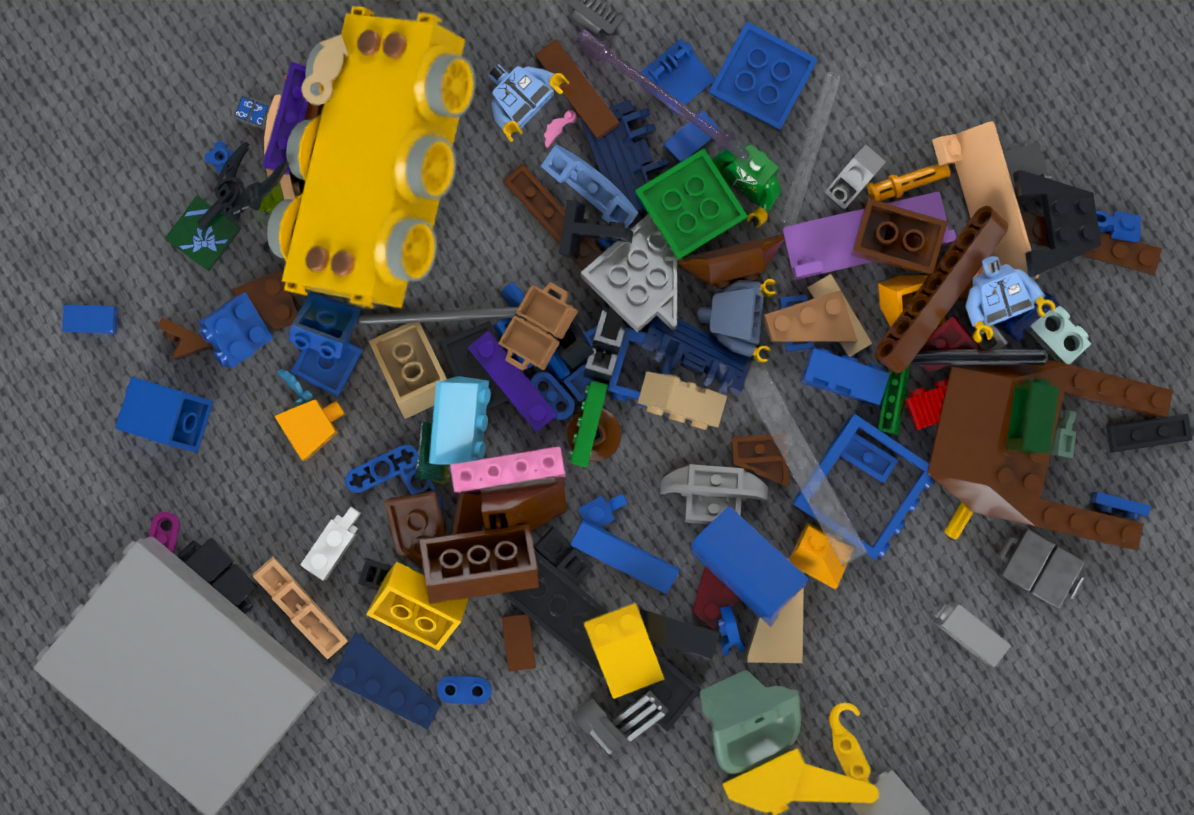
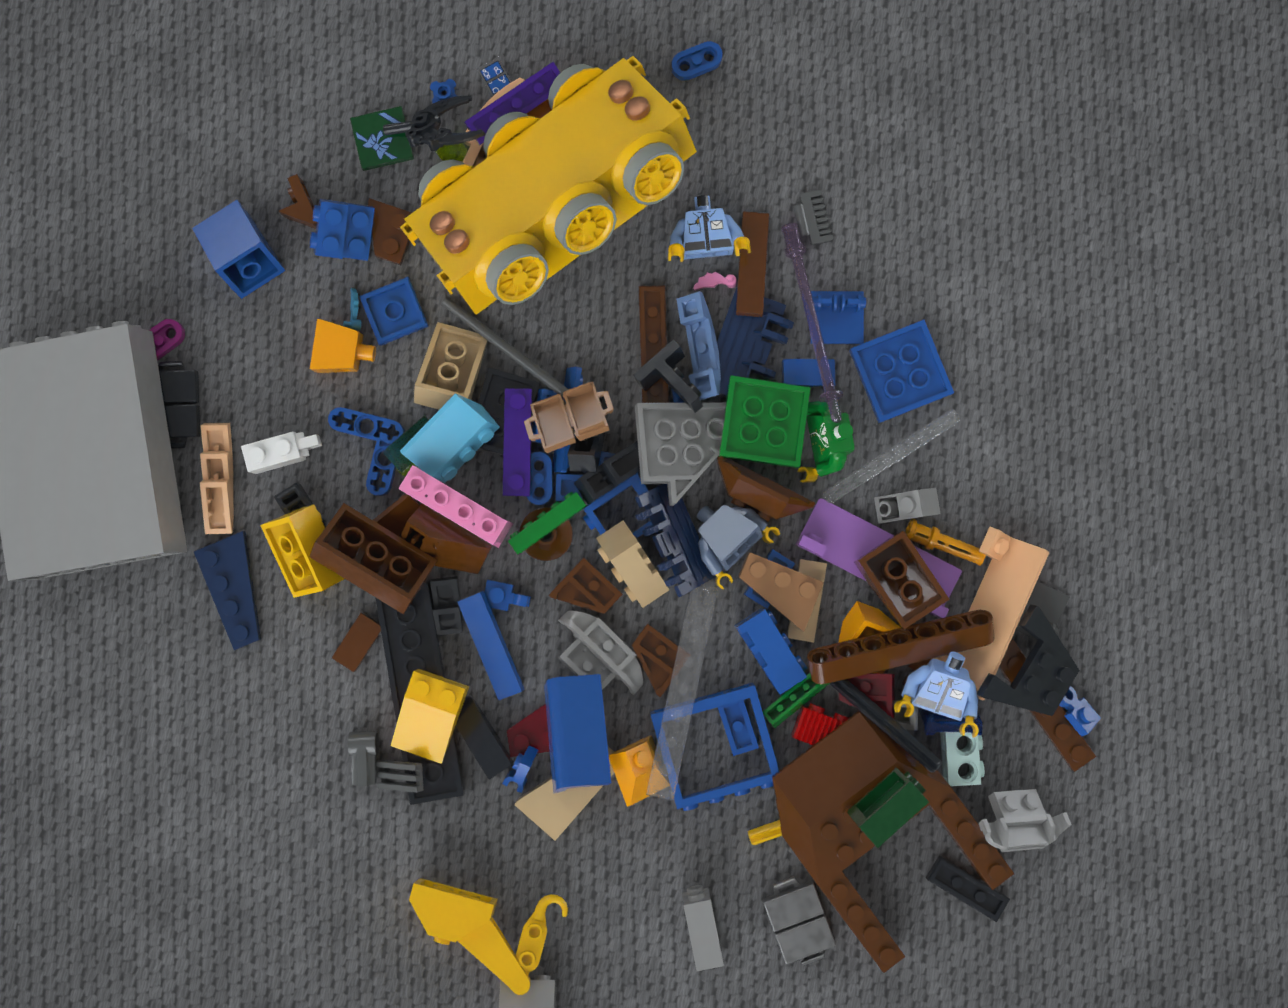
camera: 40 degrees right, 0 degrees up
(90, 319) = (246, 133): blue slope -> none
(324, 325) = (411, 281): blue plate -> none
(325, 69) = (571, 85): tan brick -> none
(412, 520) = (356, 484): reddish brown tile -> none
(464, 689) = (286, 643): blue plate -> none
(661, 450) = (587, 588): none -> reddish brown wing
(750, 721) = (476, 852): sand green piece -> none
(1064, 436) = (901, 838): sand green plate -> none
(1130, 508) = (904, 934): blue plate -> none
(1146, 346) = (1021, 822): none -> light grey plate

